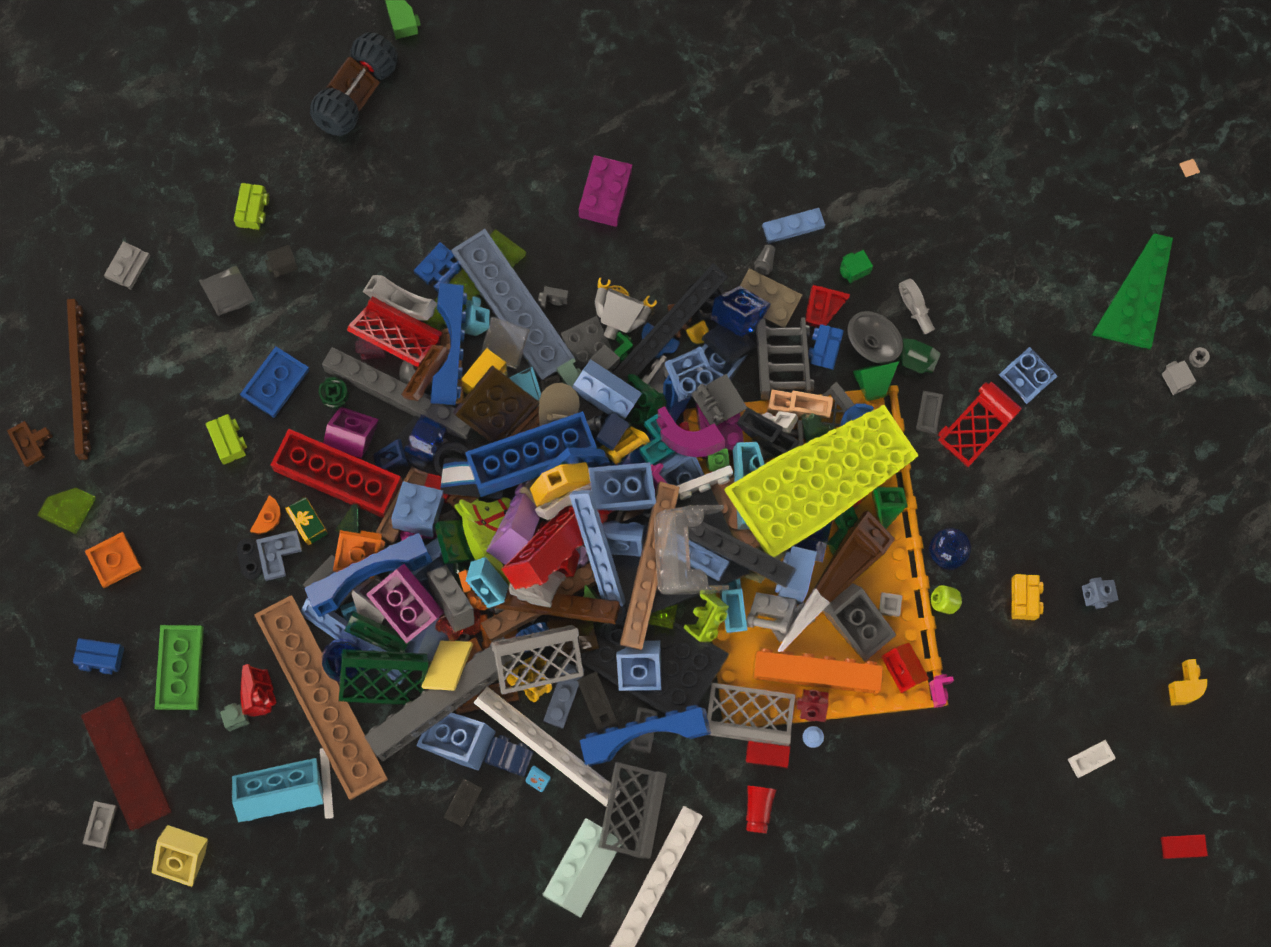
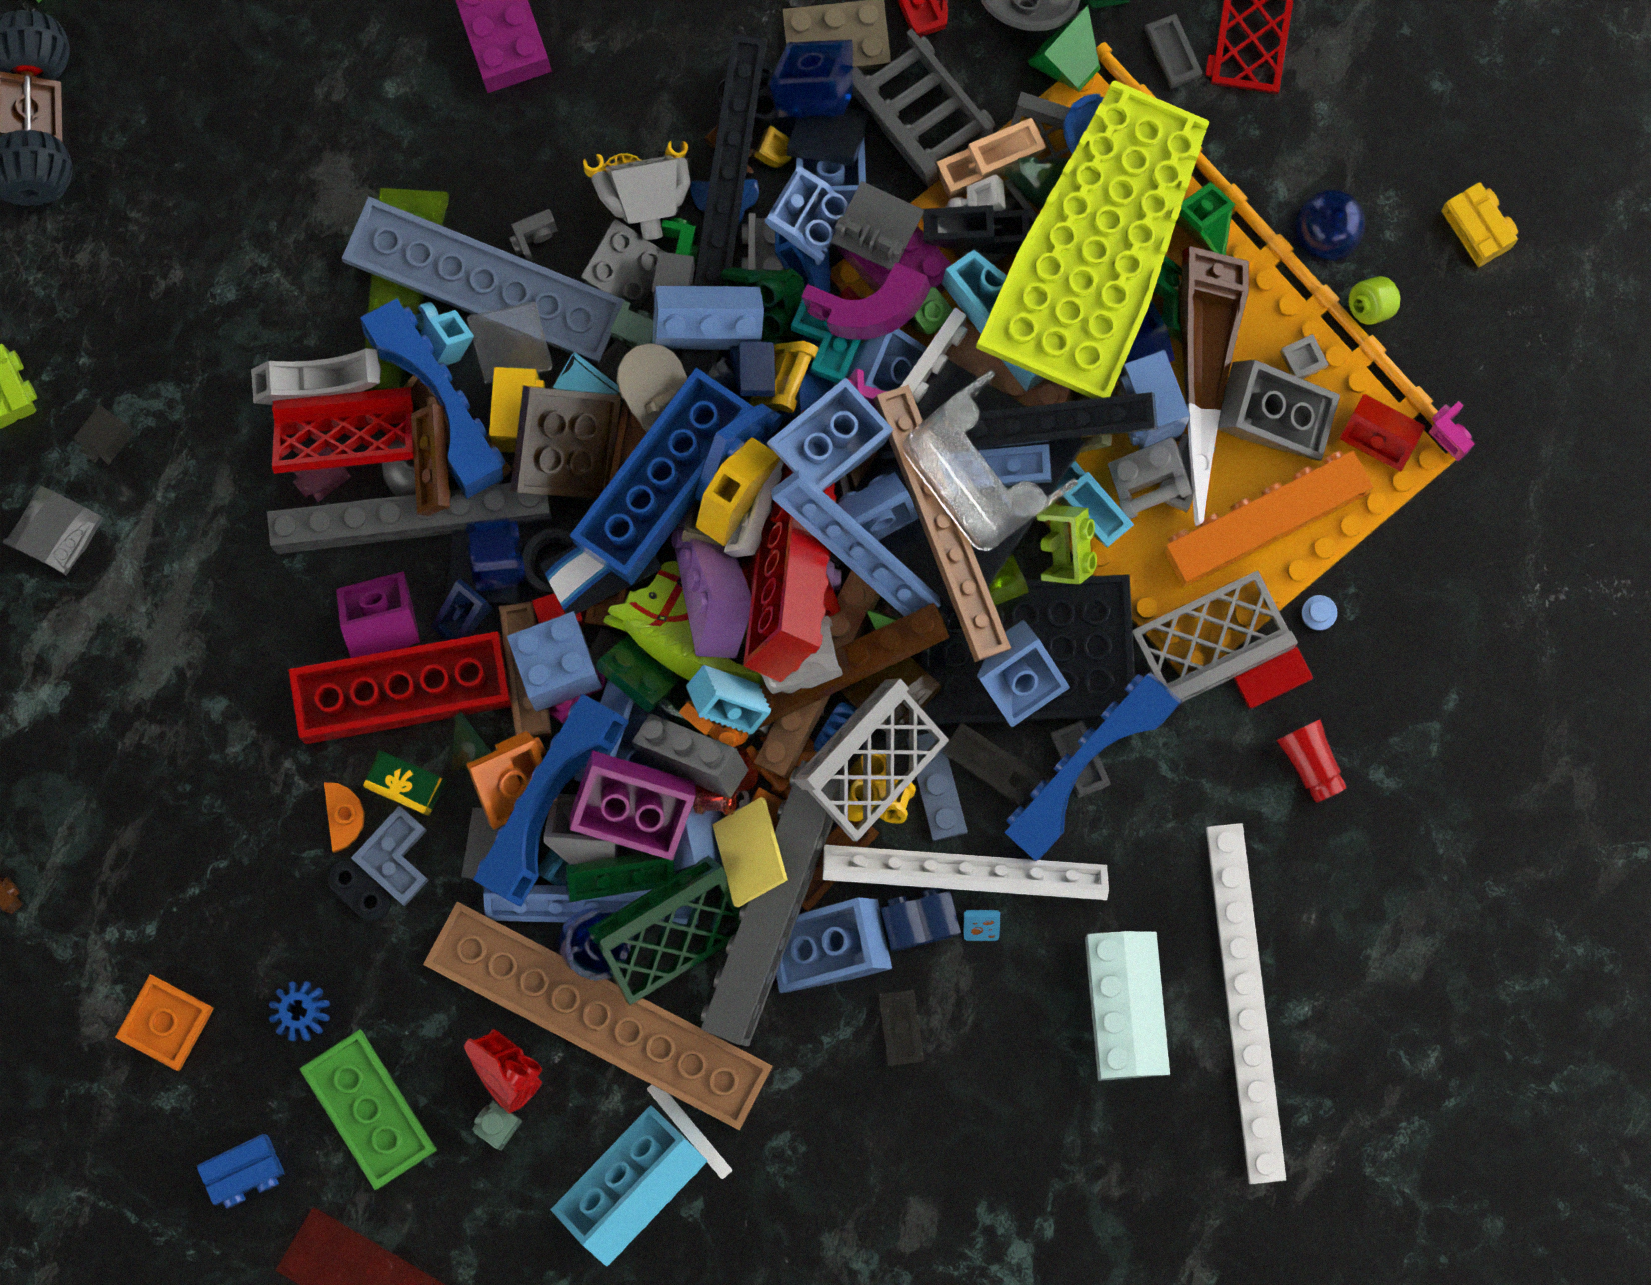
camera: 25 degrees left, 5 degrees up
(67, 509) = (45, 995): clear neon green plate -> none
(173, 602) = (309, 1002): none -> blue gear
(225, 438) = (206, 744): lime brick -> none
(274, 382) = (217, 616): blue plate -> none
(333, 393) = (313, 576): dark green wheel -> none
(435, 263) = (328, 293): blue plate -> none
(648, 817) = (1170, 873): dark grey fence -> none
(813, 705) = (1294, 568): dark red brick -> none
(825, 347) = (968, 51): blue brick -> none
(1095, 593) = (1577, 151): sand blue brick -> none

